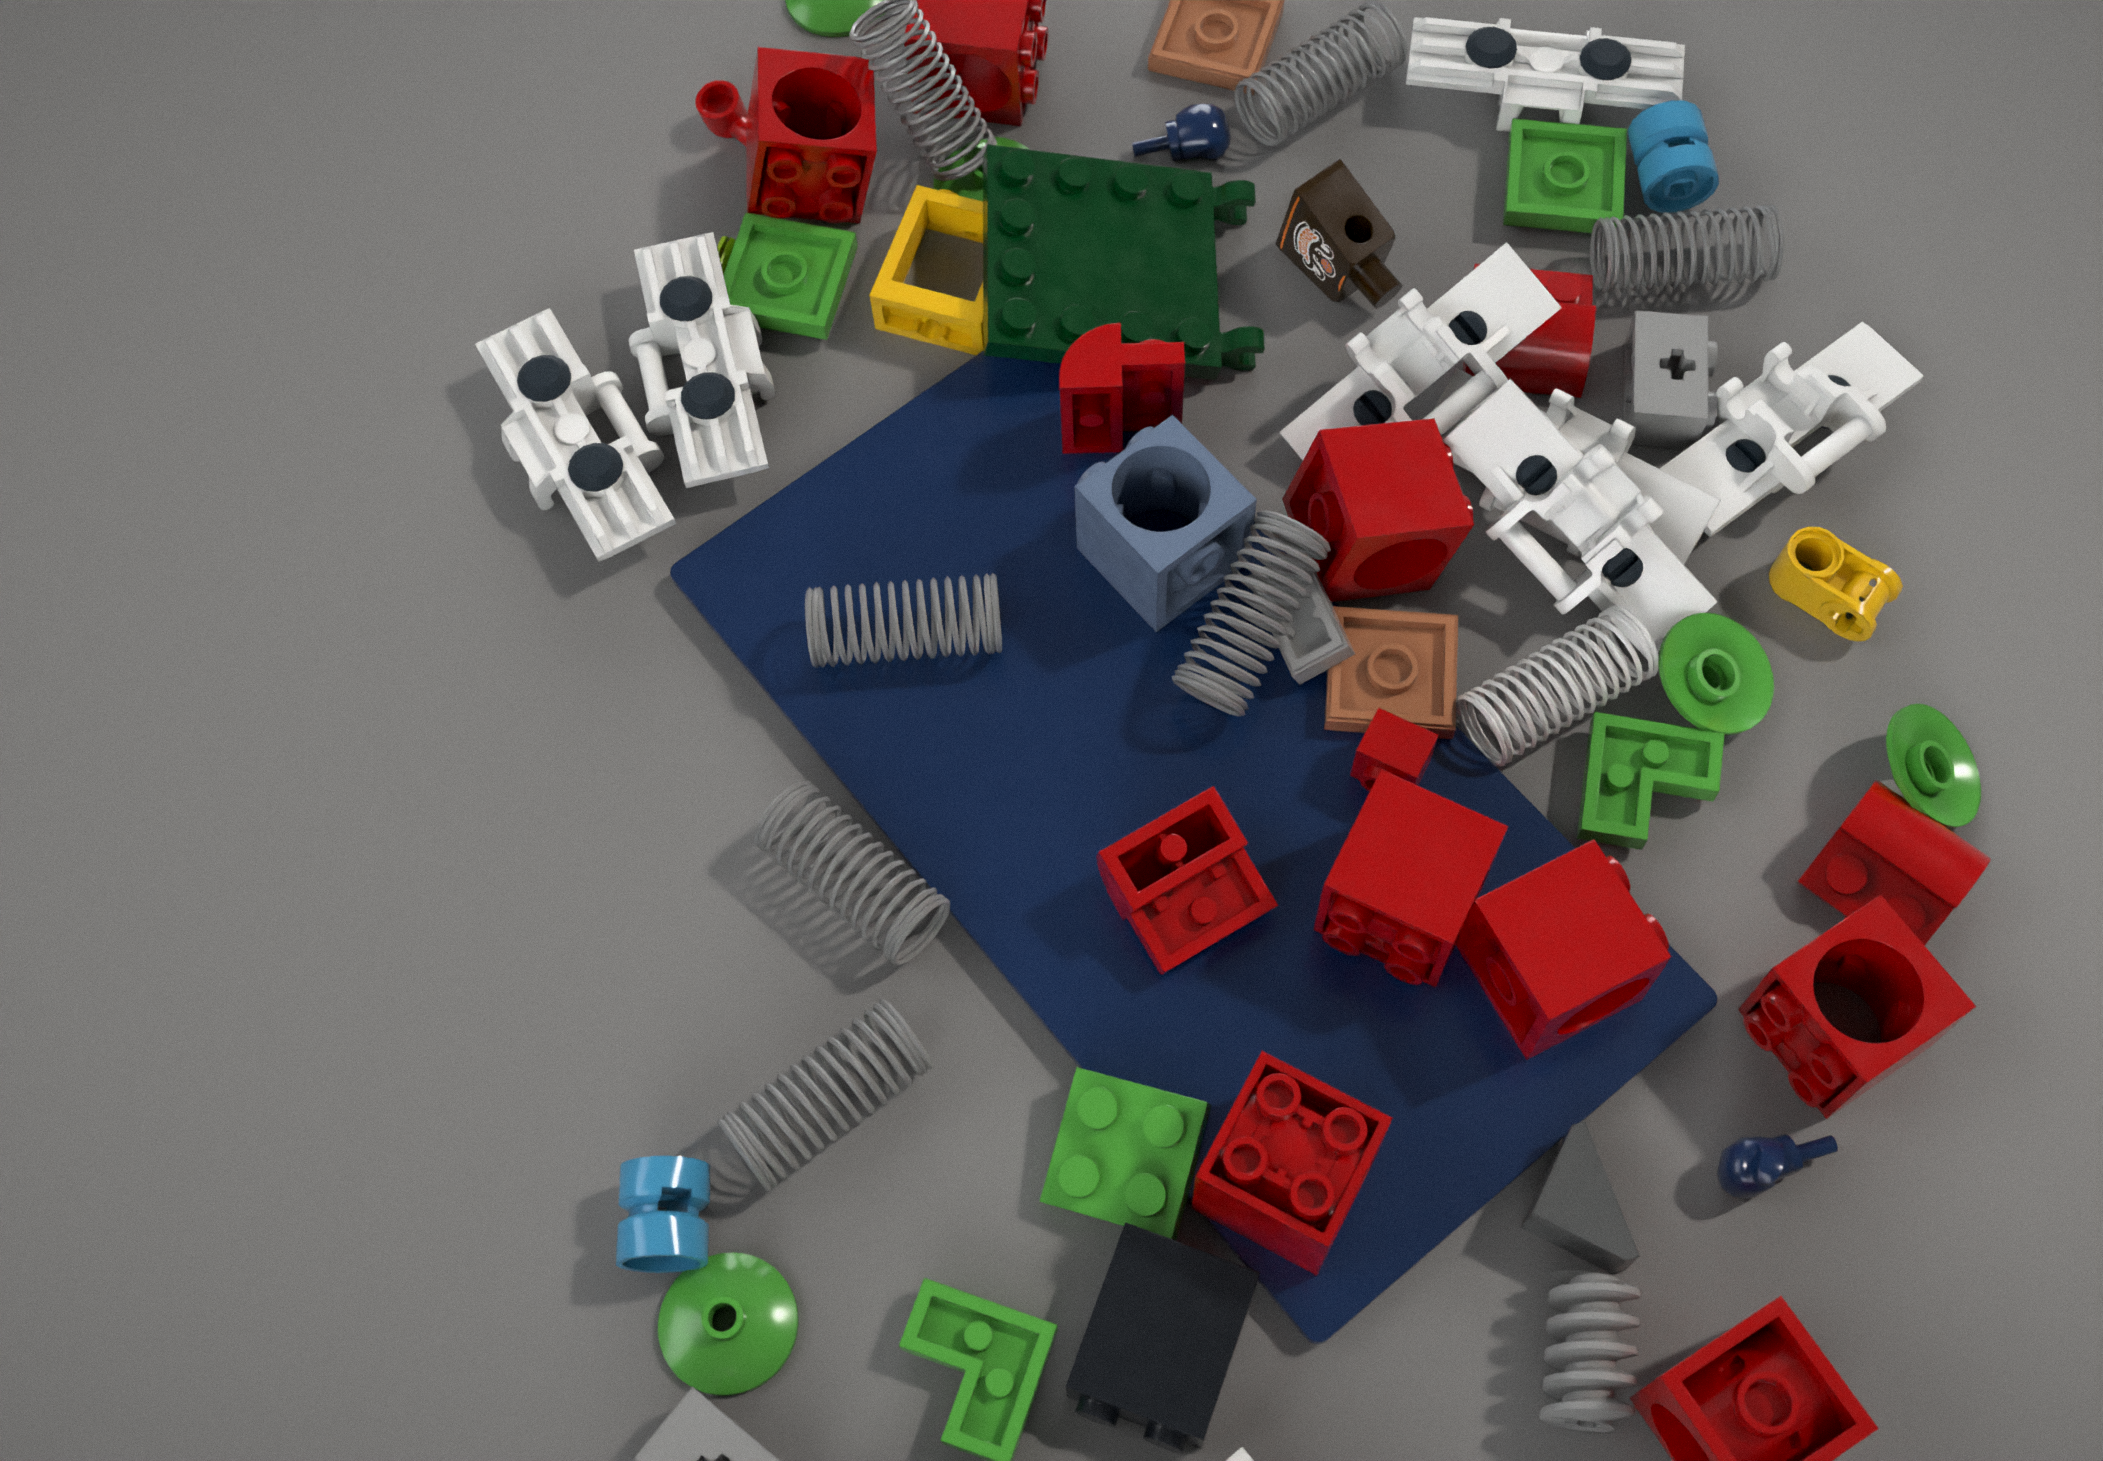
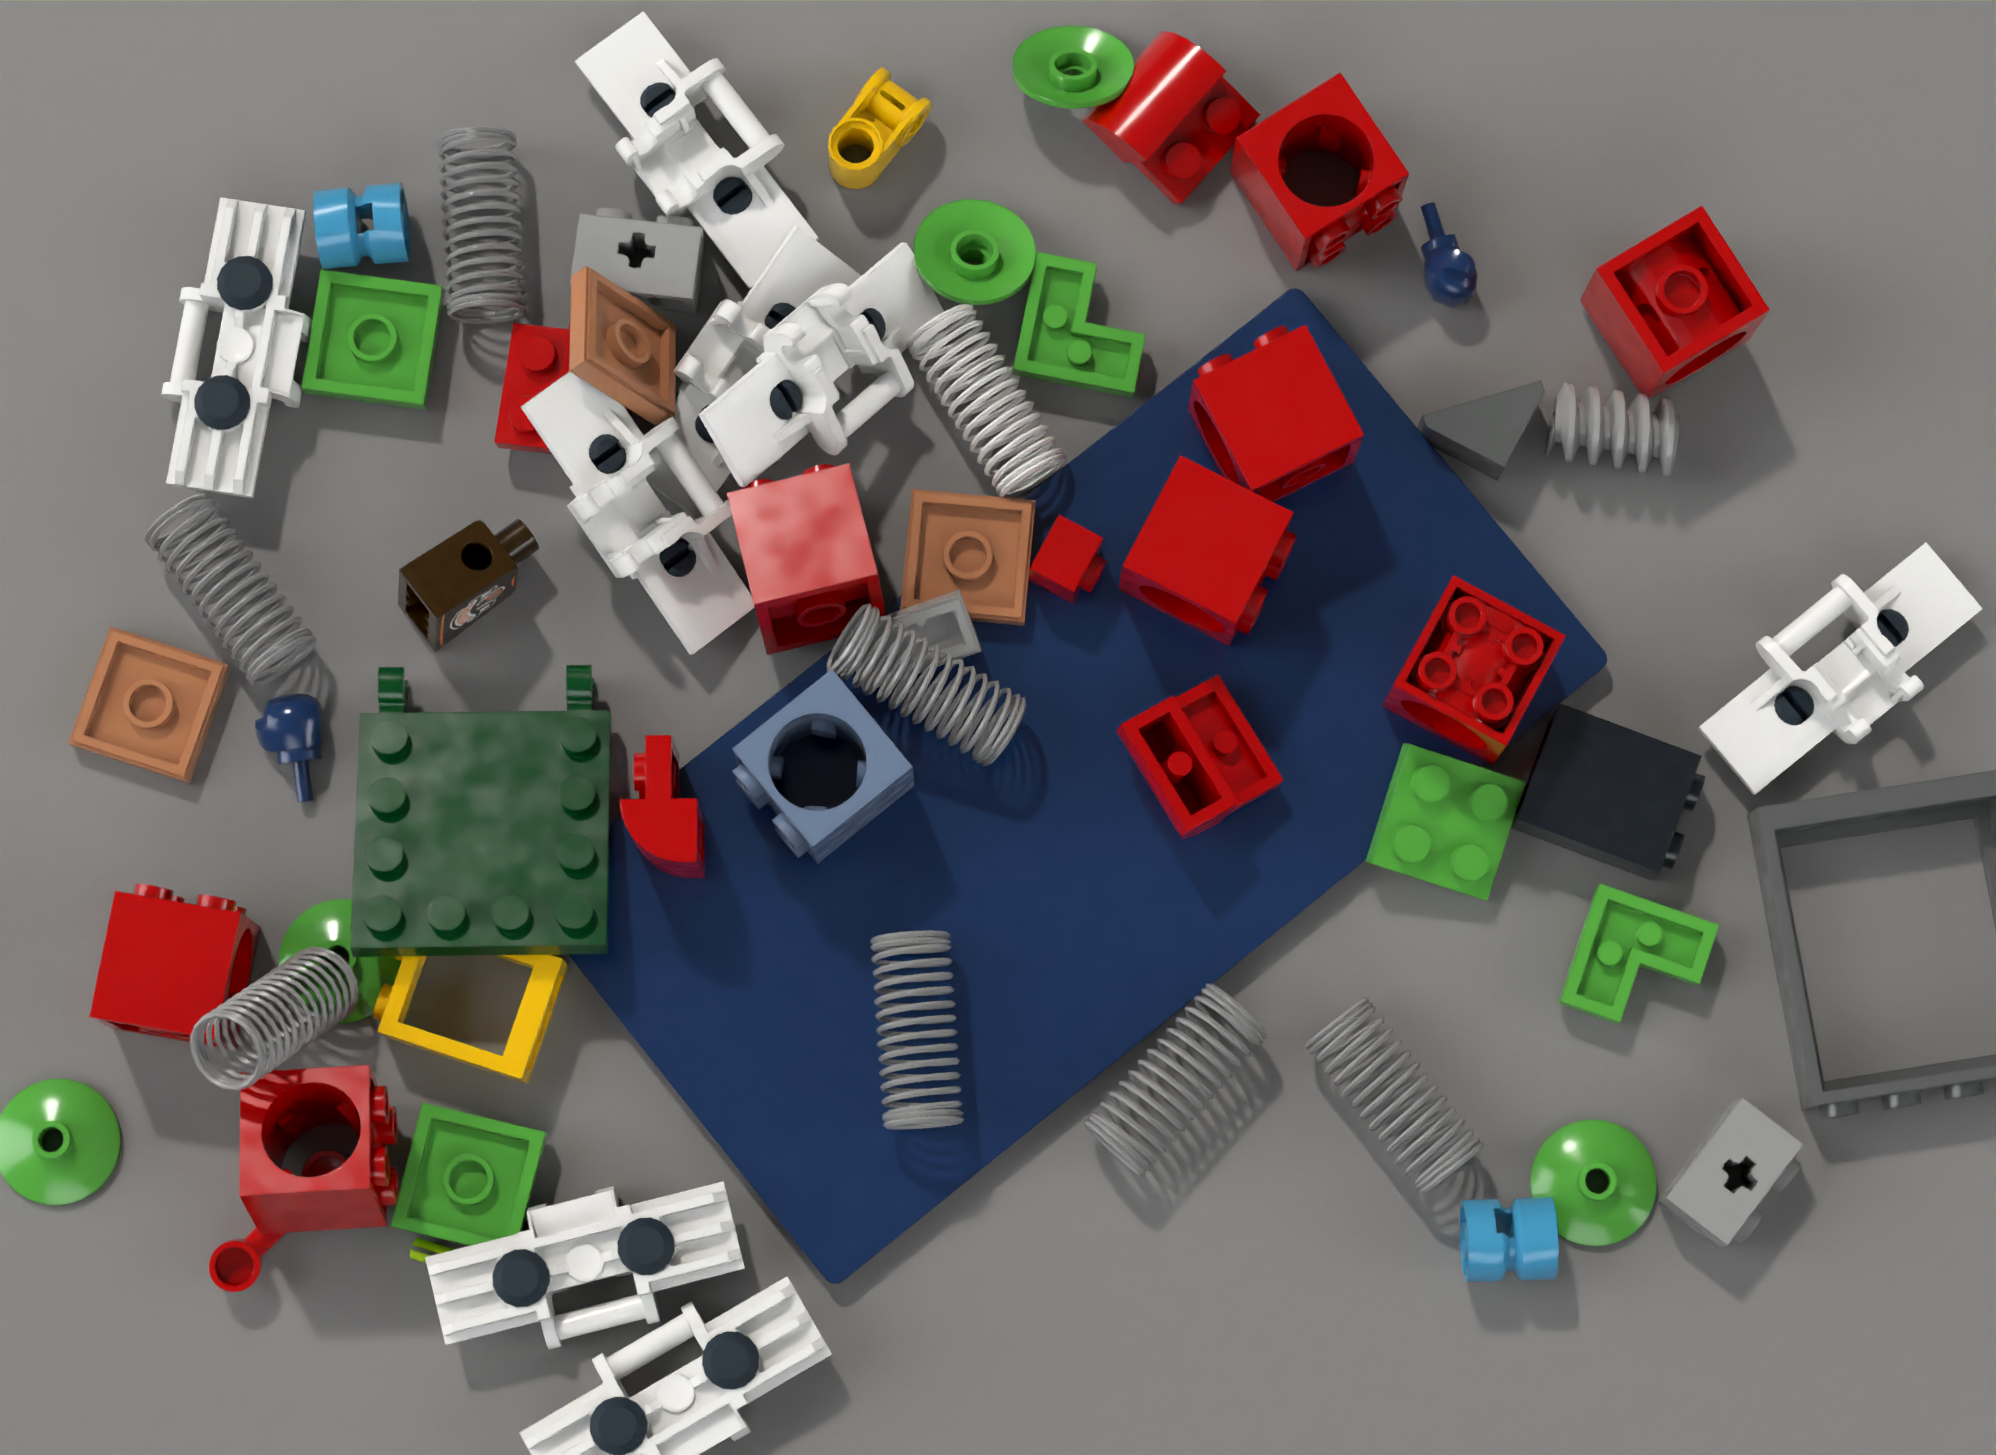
camera: 95 degrees left, 15 degrees up
(1578, 343) = (622, 346): none -> nougat tile

